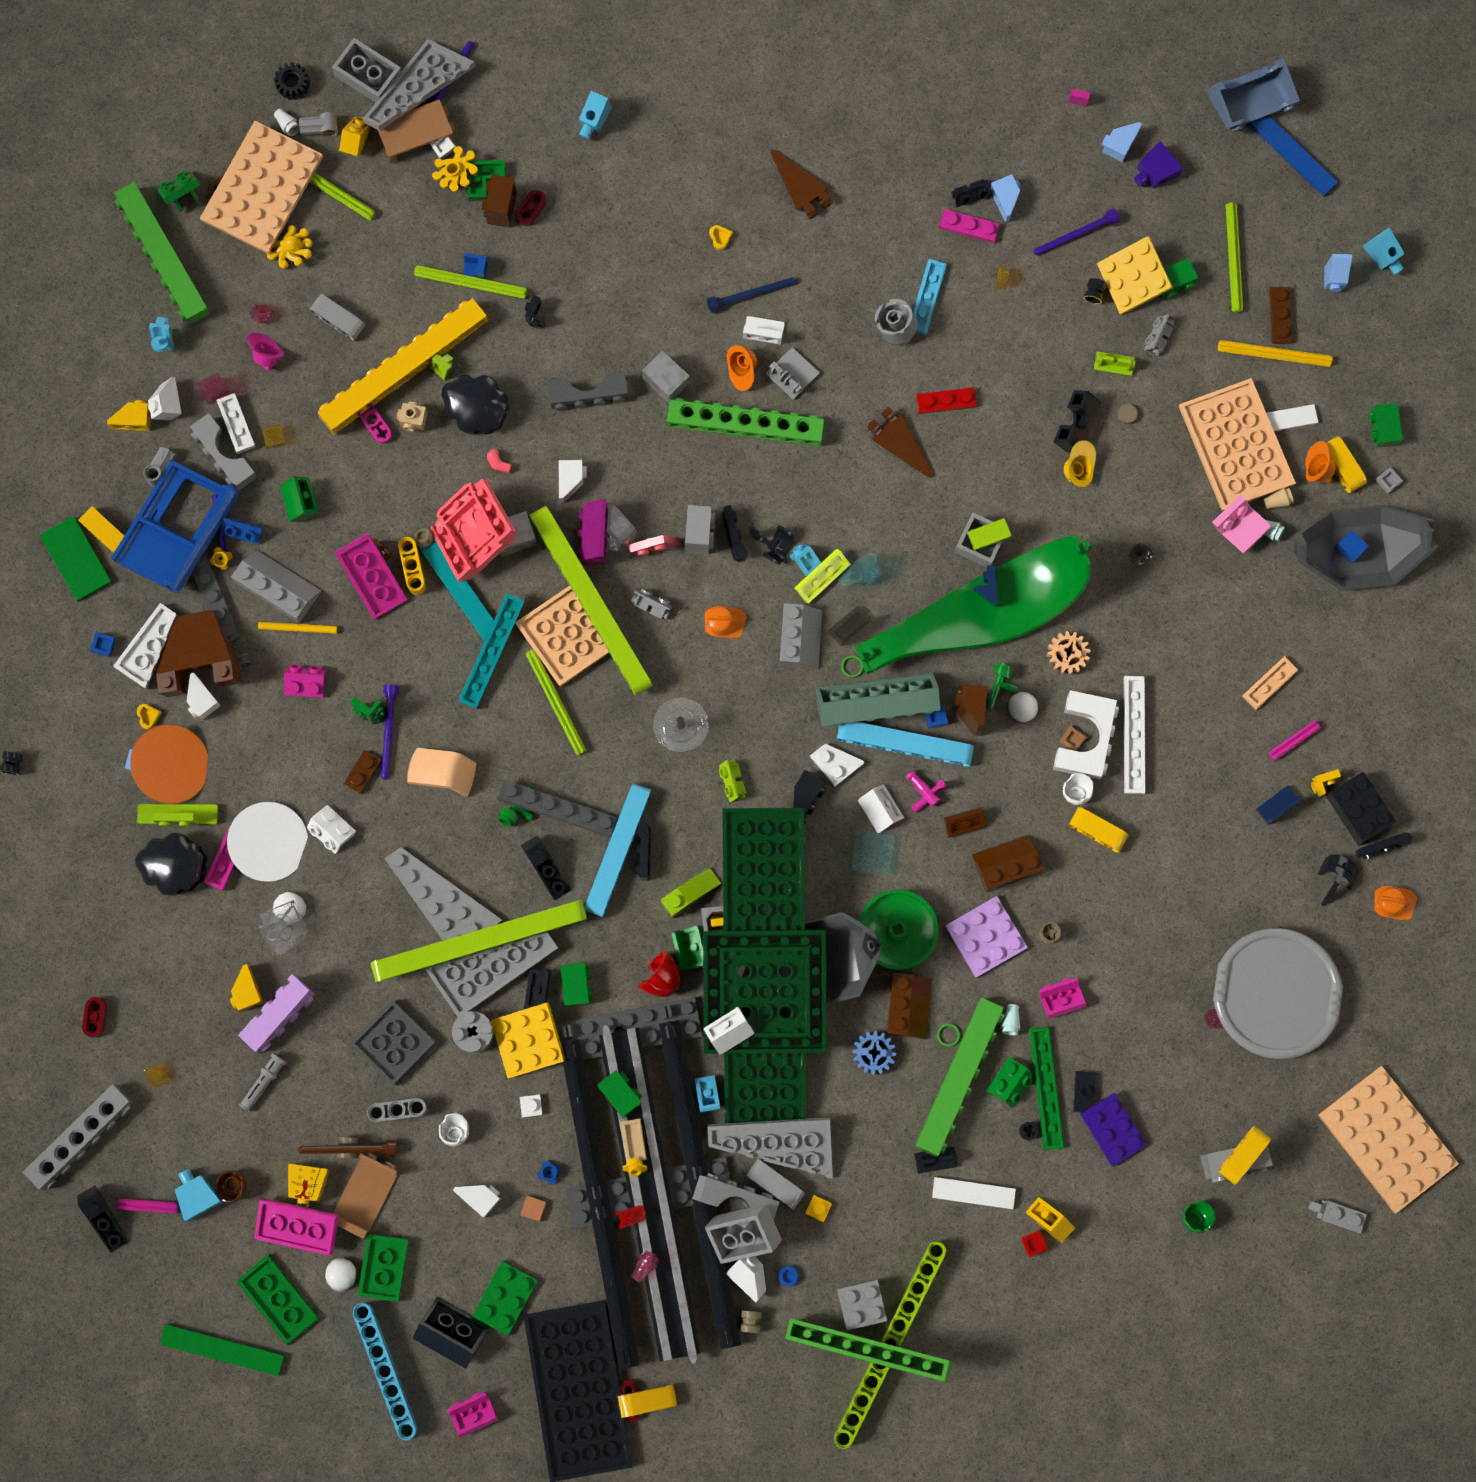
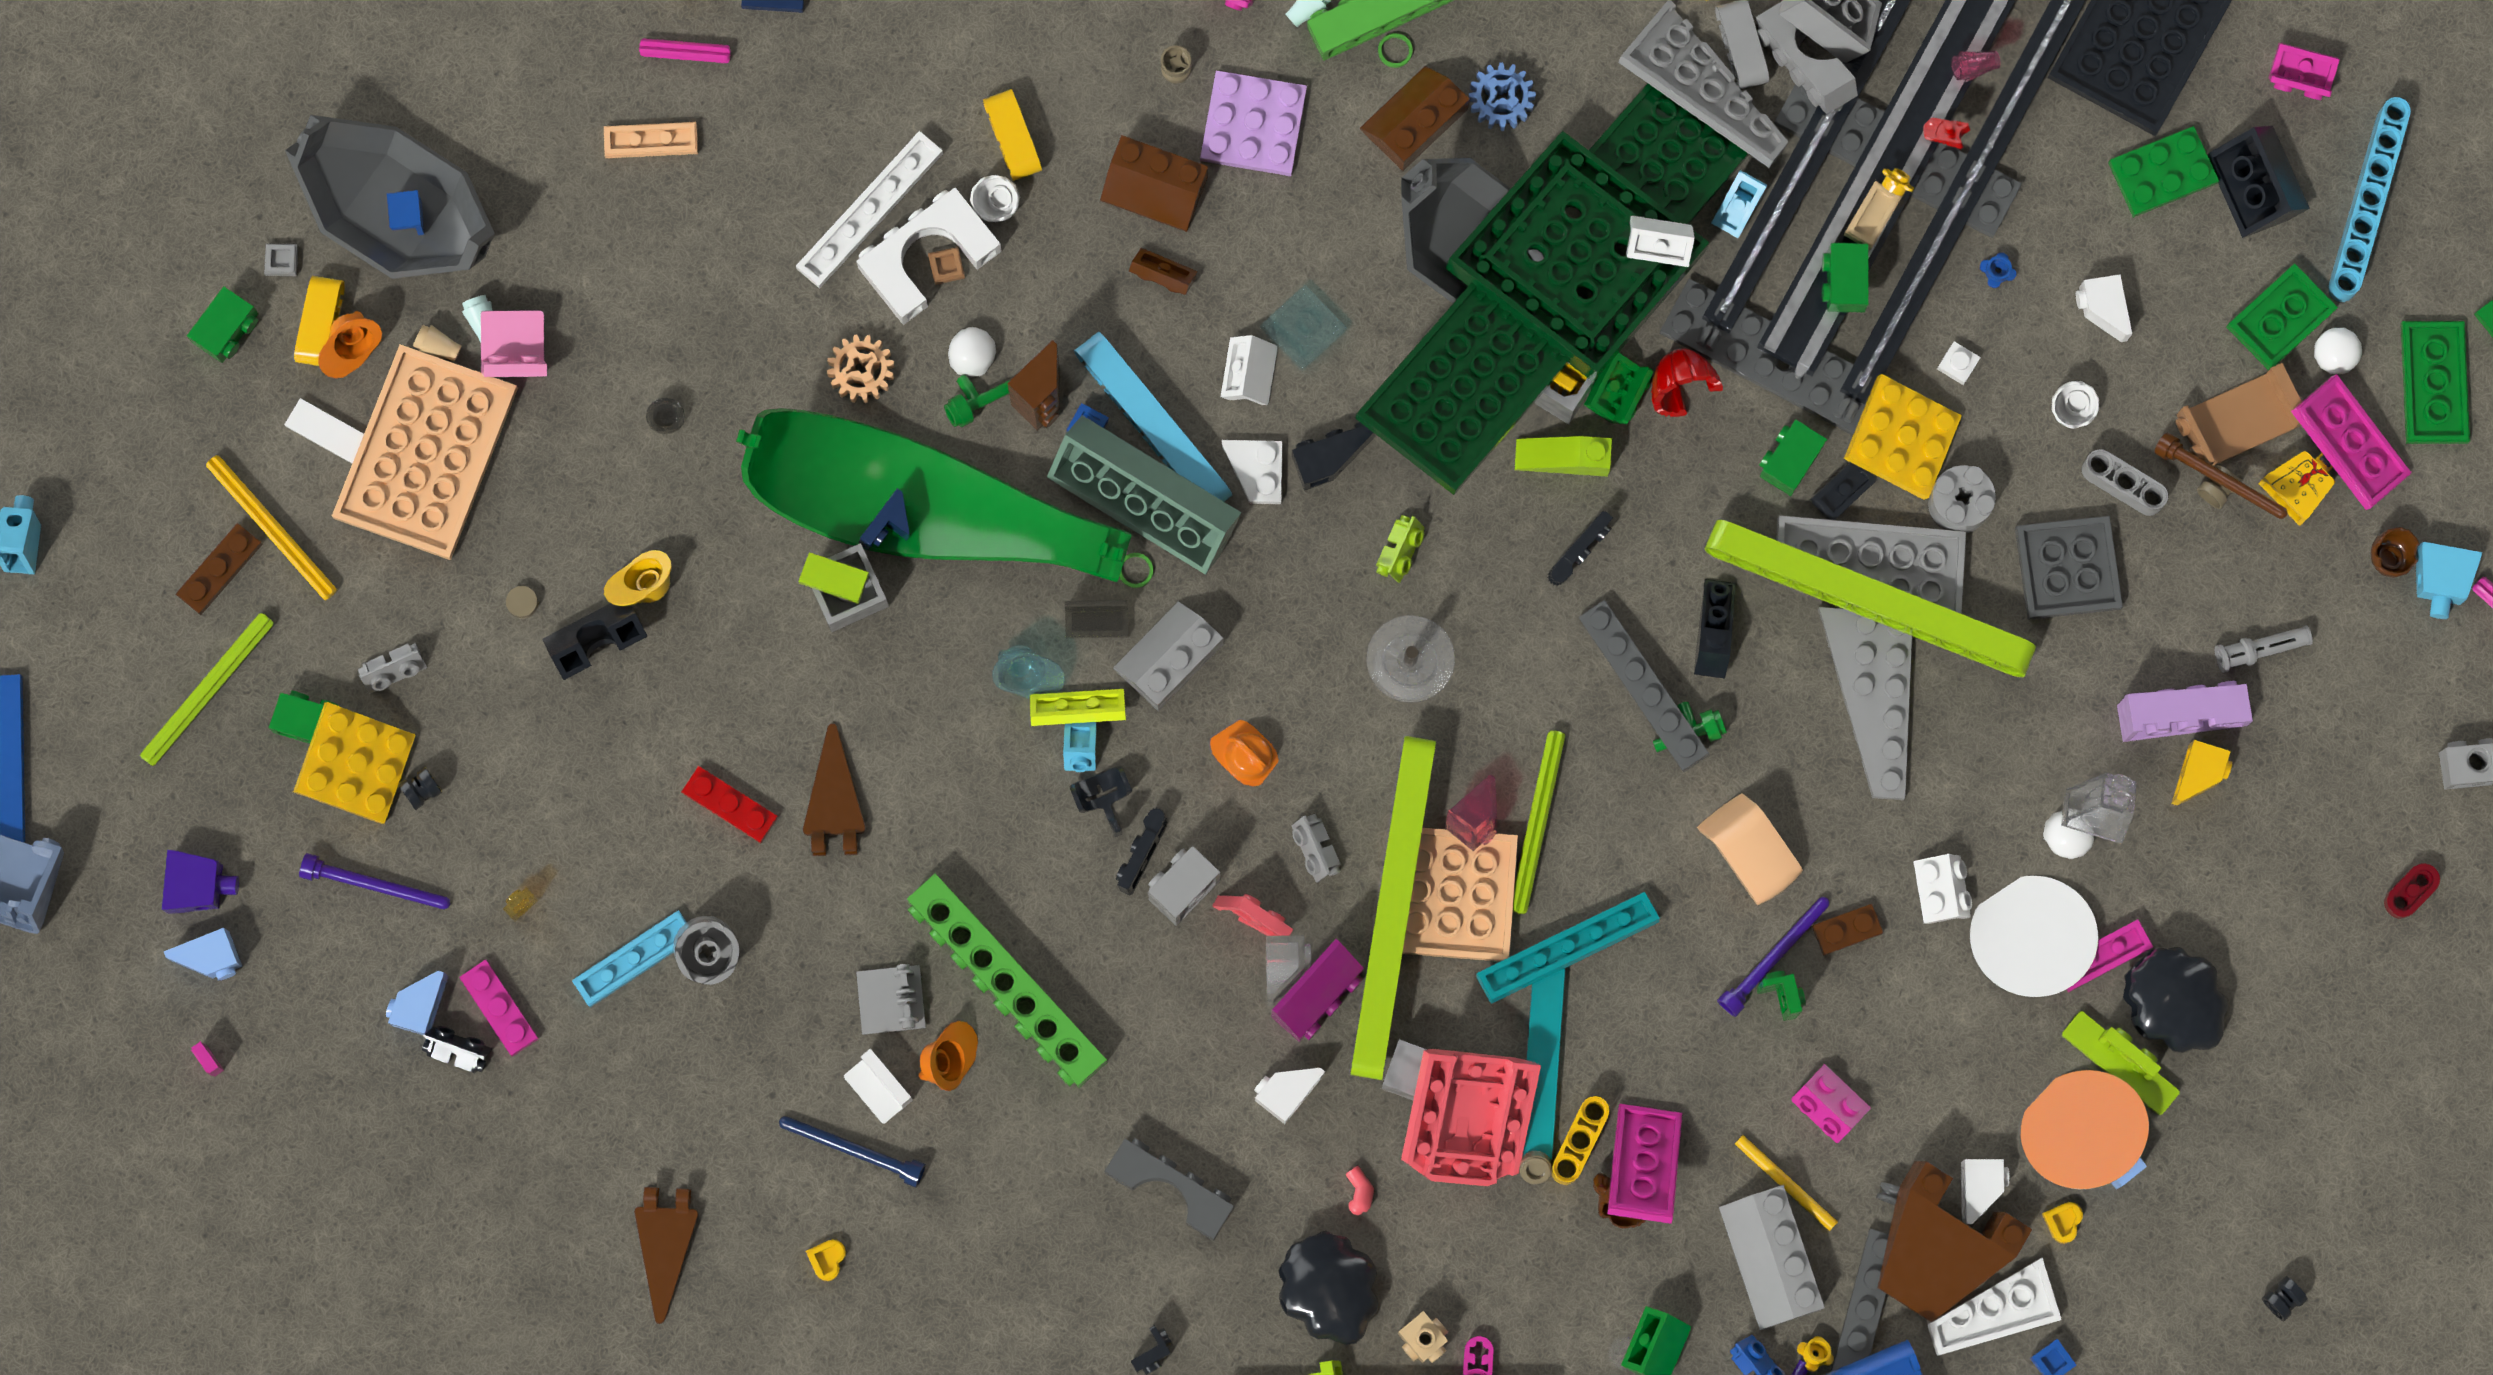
camera: 140 degrees left, 0 degrees up
(157, 1075) = (2385, 760): clear yellow plate -> none
(533, 1208) = (2049, 244): nougat tile -> none
(586, 676) = (1475, 815): none -> clear pink slope
(617, 850) = (1609, 575): medium azure beam -> none
(665, 377) = (1057, 1121): flat silver piece -> none
(903, 926) = (1350, 209): green dish -> none
(925, 790) = (1177, 346): dark pink piece -> none
(1114, 363) = (479, 678): lime hinge -> none
(1337, 272) = (103, 557): light blue slope -> none

